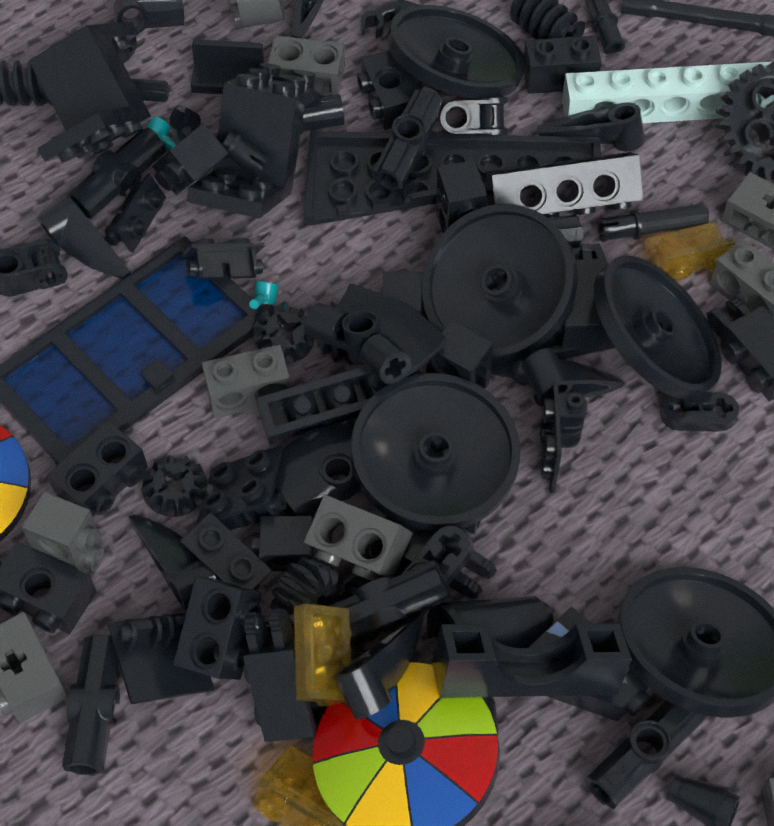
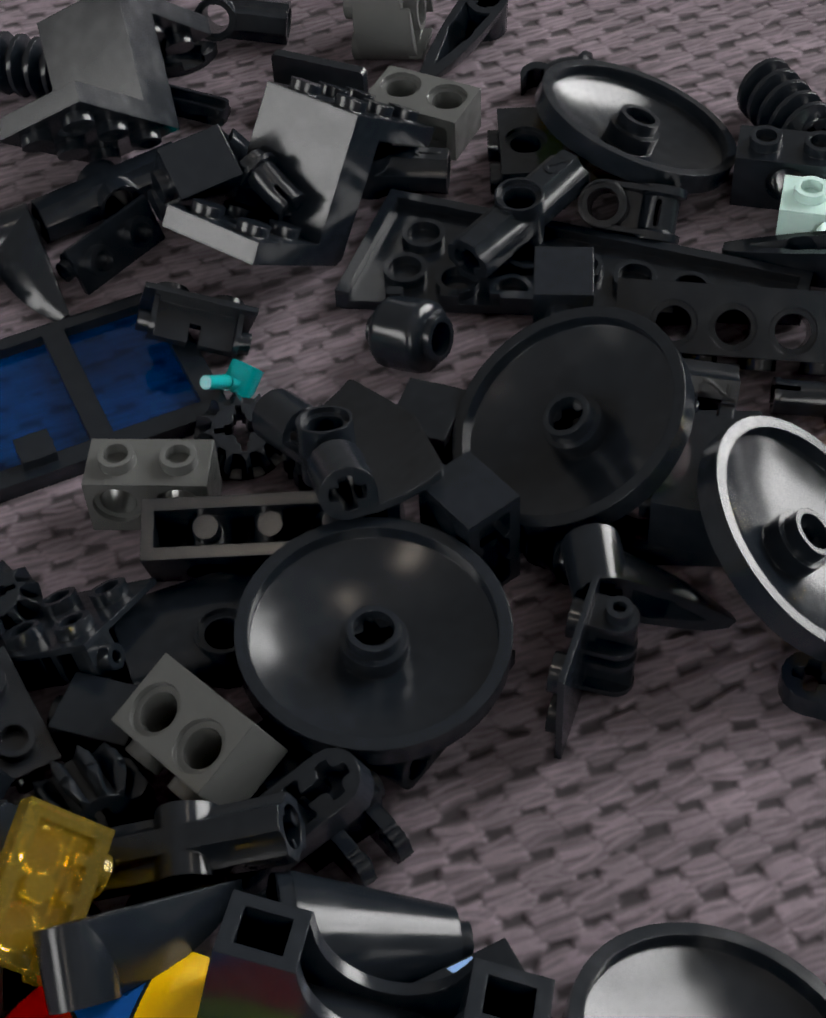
camera: 20 degrees right, 10 degrees down
(364, 237) = (409, 334): none -> black head

